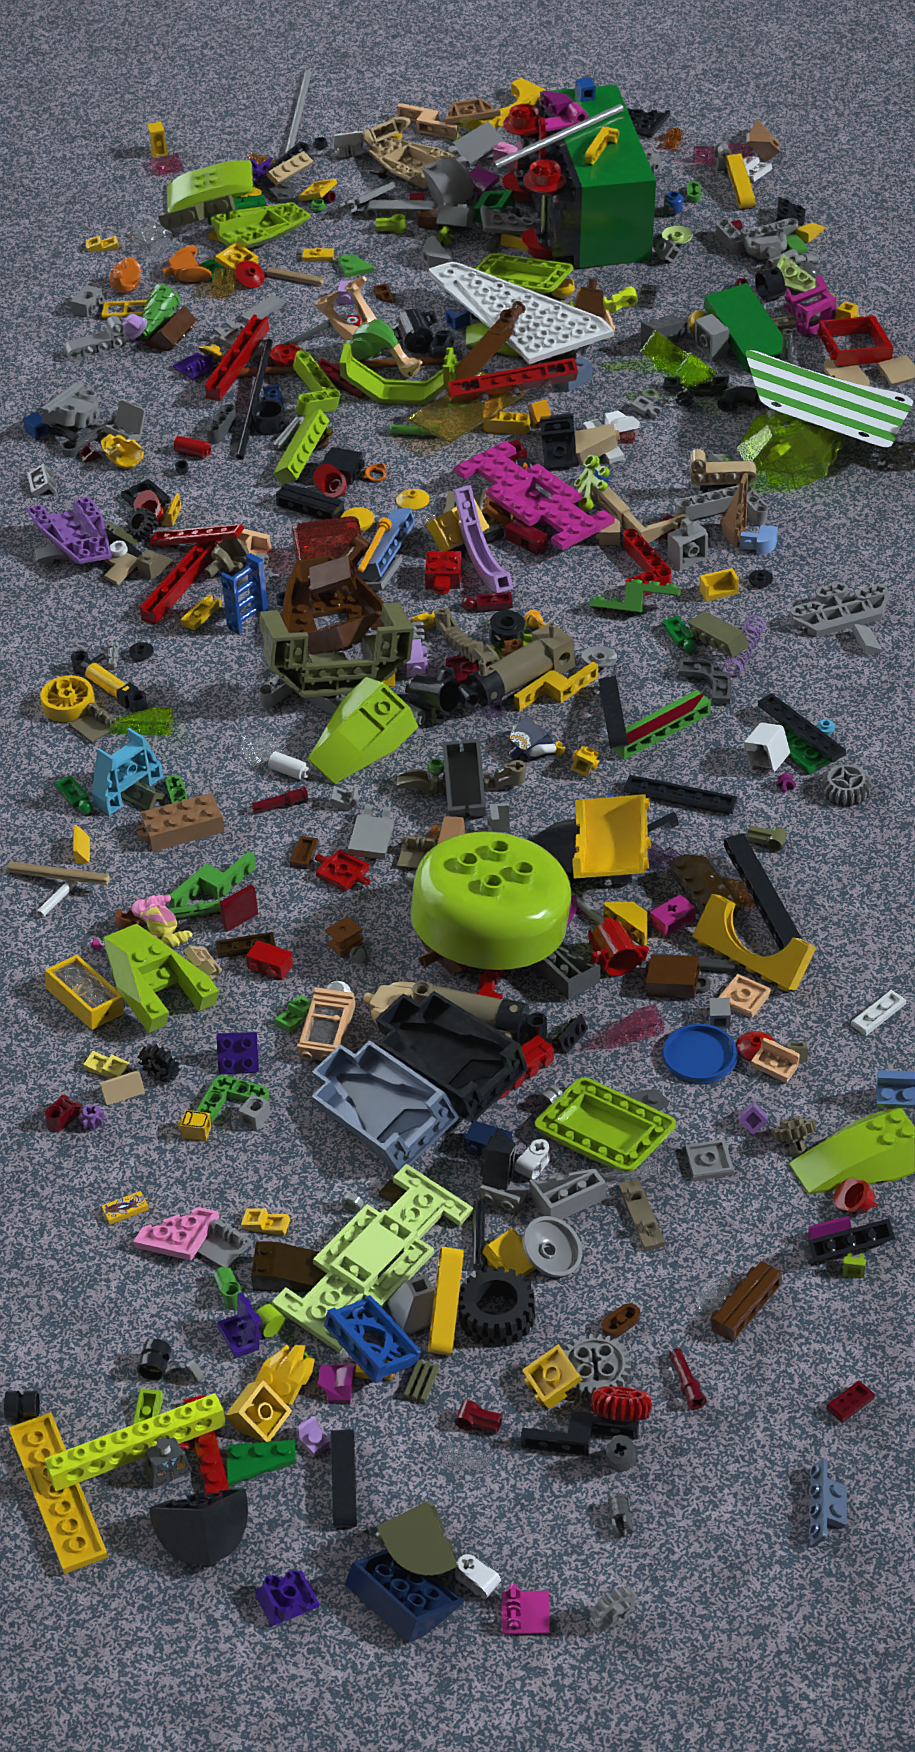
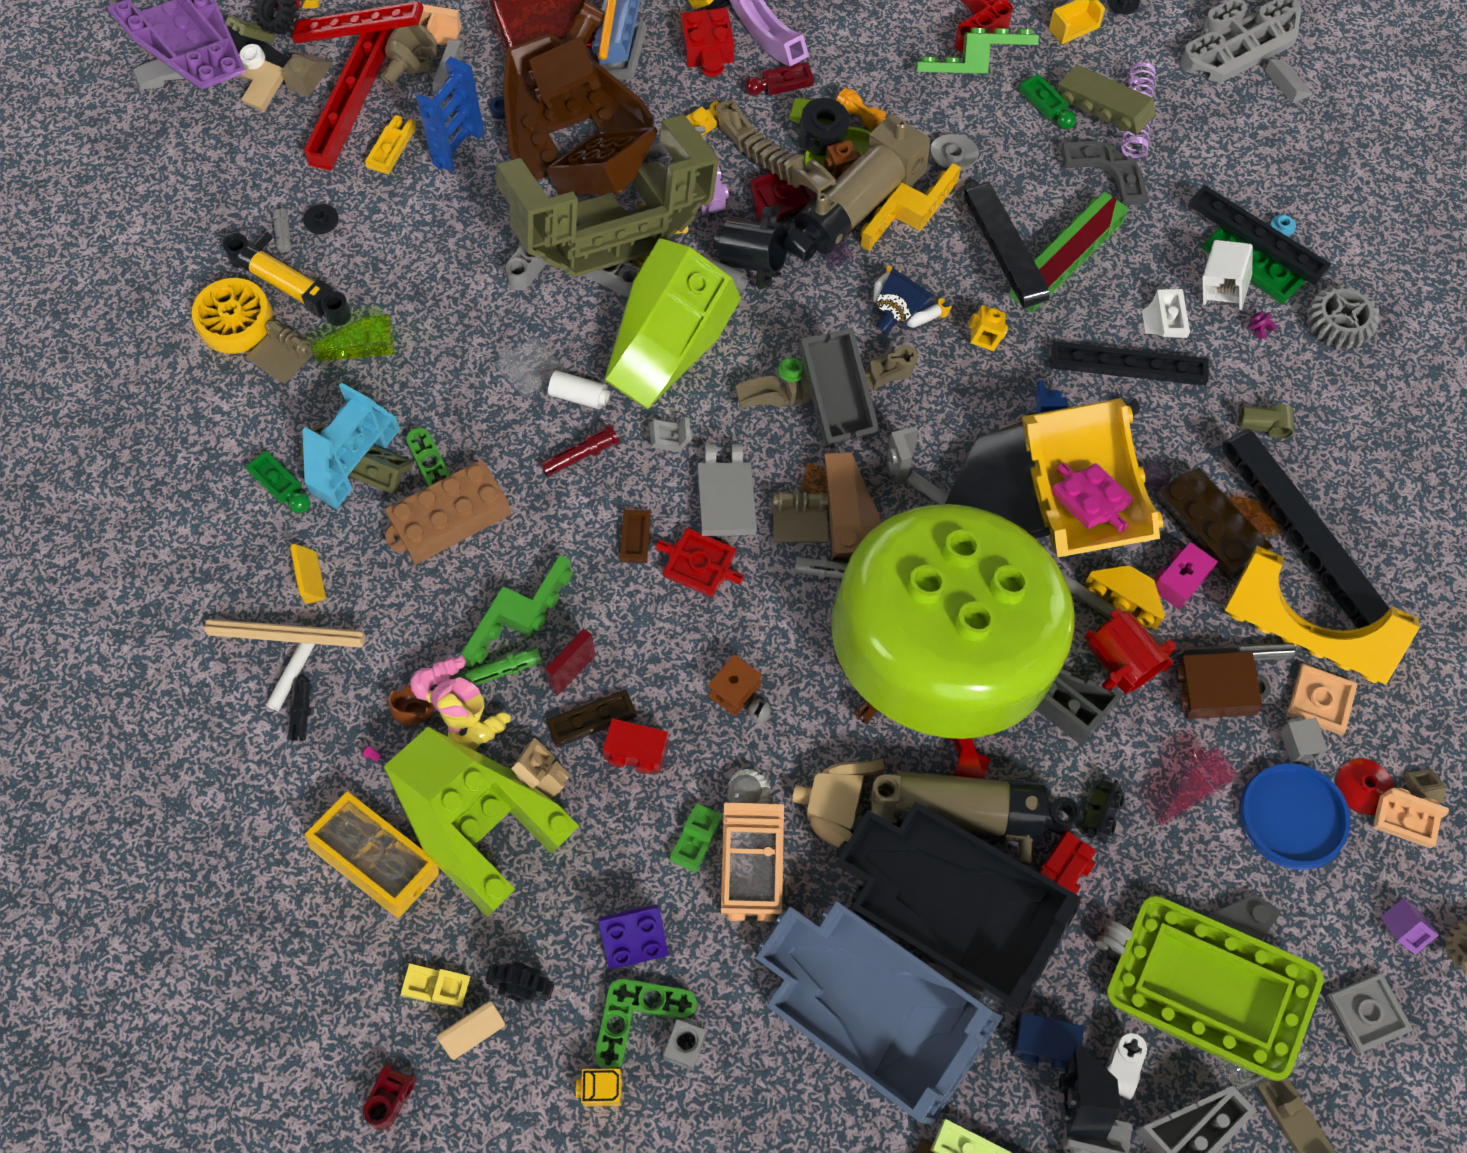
camera: 15 degrees left, 20 degrees up
(56, 917) = (299, 711): none -> black pin
(91, 1117) = (437, 1107): medium lavender gear -> none
(610, 849) = (1092, 496): none -> dark pink plate
(719, 768) = (1167, 314): none -> white slope

